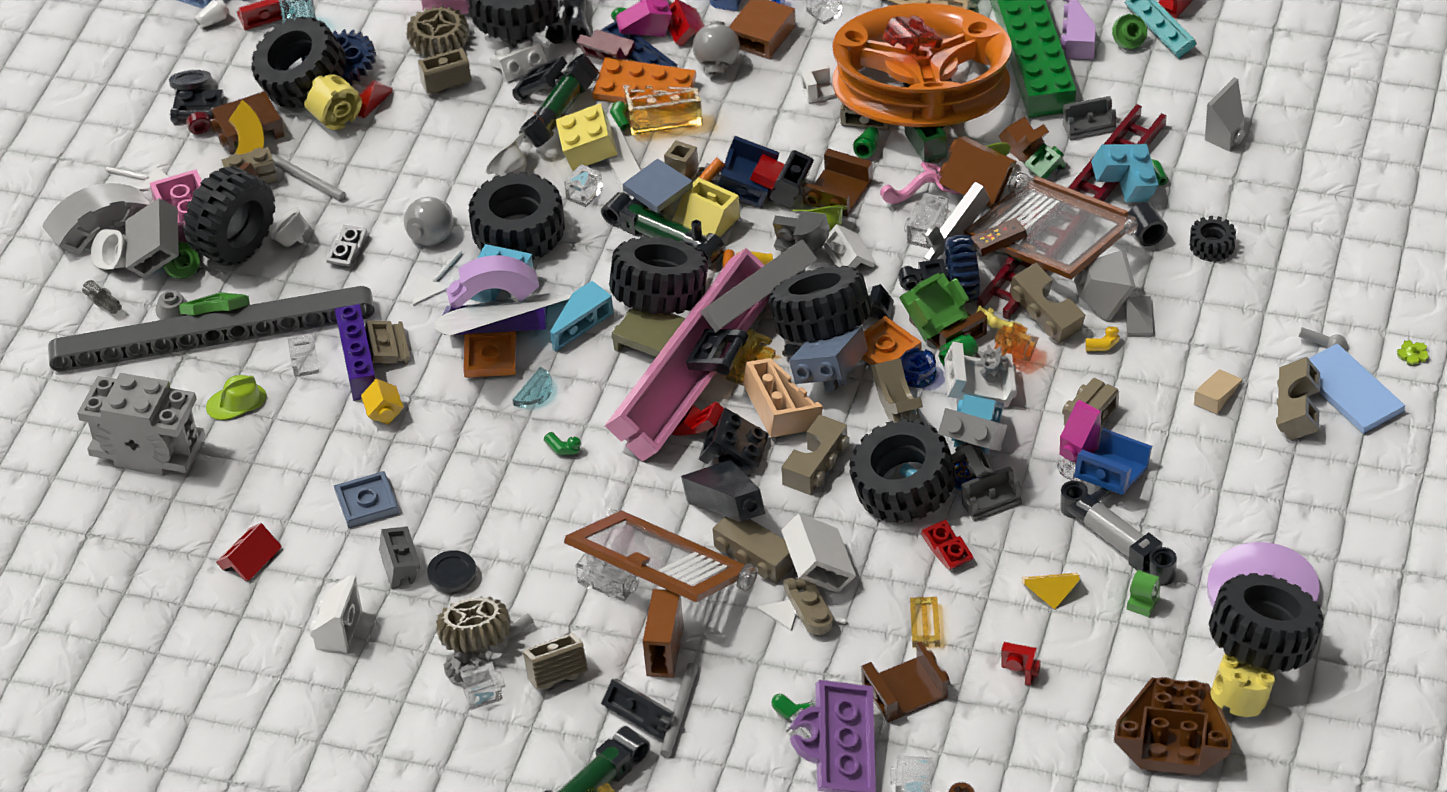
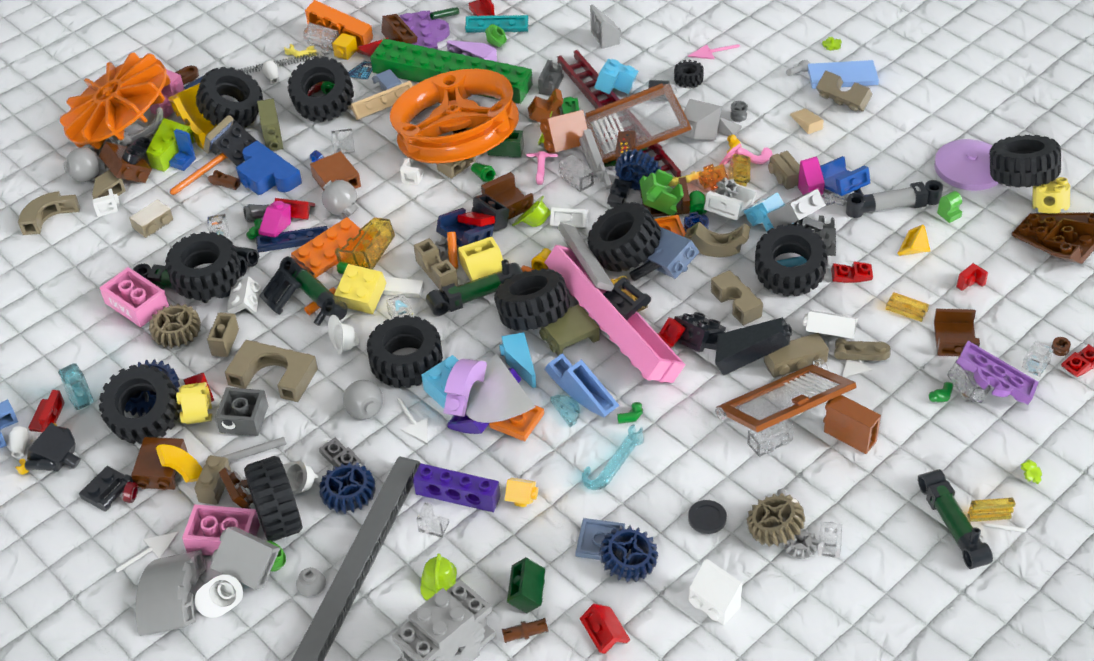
camera: 60 degrees left, 0 degrees up
(101, 297) = (261, 622): clear smoke axle -> none
(190, 80) = (77, 480): black piece -> none
(207, 491) = (525, 630): none -> reddish brown pin
(213, 39) = (50, 451): none -> black torso
(216, 302) = (337, 550): bright green tile -> none
(257, 463) = (526, 585): none -> dark green brick
(319, 269) = (349, 492): none -> dark blue gear
(335, 523) = (639, 562): none -> dark blue gear
(348, 141) = (241, 411): none -> dark grey brick
(387, 342) = (460, 464): dark tan plate -> none
(398, 555) = (676, 539): dark grey hinge -> none
(438, 154) = (255, 356): none -> dark tan arch
(527, 460) = (631, 441): none -> clear light blue piece
(555, 661) = (837, 489): dark tan brick -> none
(569, 381) = (581, 385): none -> medium blue slope
(605, 45) = (278, 249): panel -> none
(637, 707) = (900, 466): black hinge -> none
(657, 185) = (451, 267): sand blue tile -> none
(679, 709) = (911, 449): light grey bar -> none
(778, 400) = (678, 294): light nougat wedge -> none
(810, 227) = (547, 226): dark grey brick -> none
(911, 33) = (442, 101): clear red slope -> none
(1046, 361) = (739, 169): none -> clear yellow hinge
(1057, 319) = (679, 152): dark tan arch -> none
(1110, 377) = (761, 159): none -> bright pink piece
(1175, 316) = (738, 111): none -> dark grey wheel
(1281, 237) = (705, 52): none -> bright pink piece

